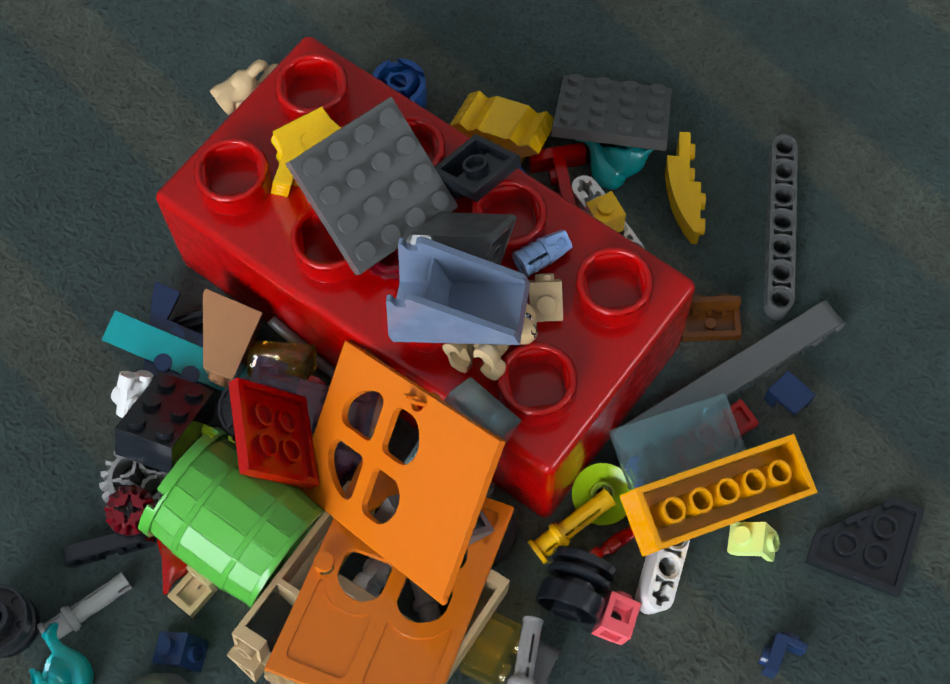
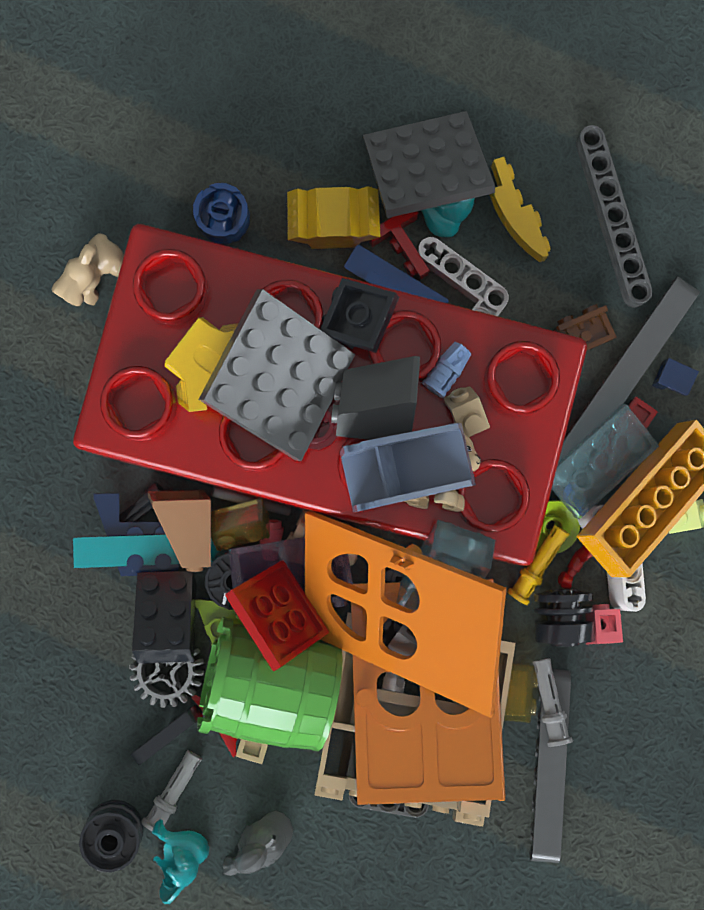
camera: 25 degrees left, 20 degrees up
(121, 498) = (179, 693): dark red gear -> none
(129, 388) = (120, 598): white plate -> none
(180, 651) = (266, 794): dark blue bracket -> none
(607, 210) = (463, 277): yellow brick -> none

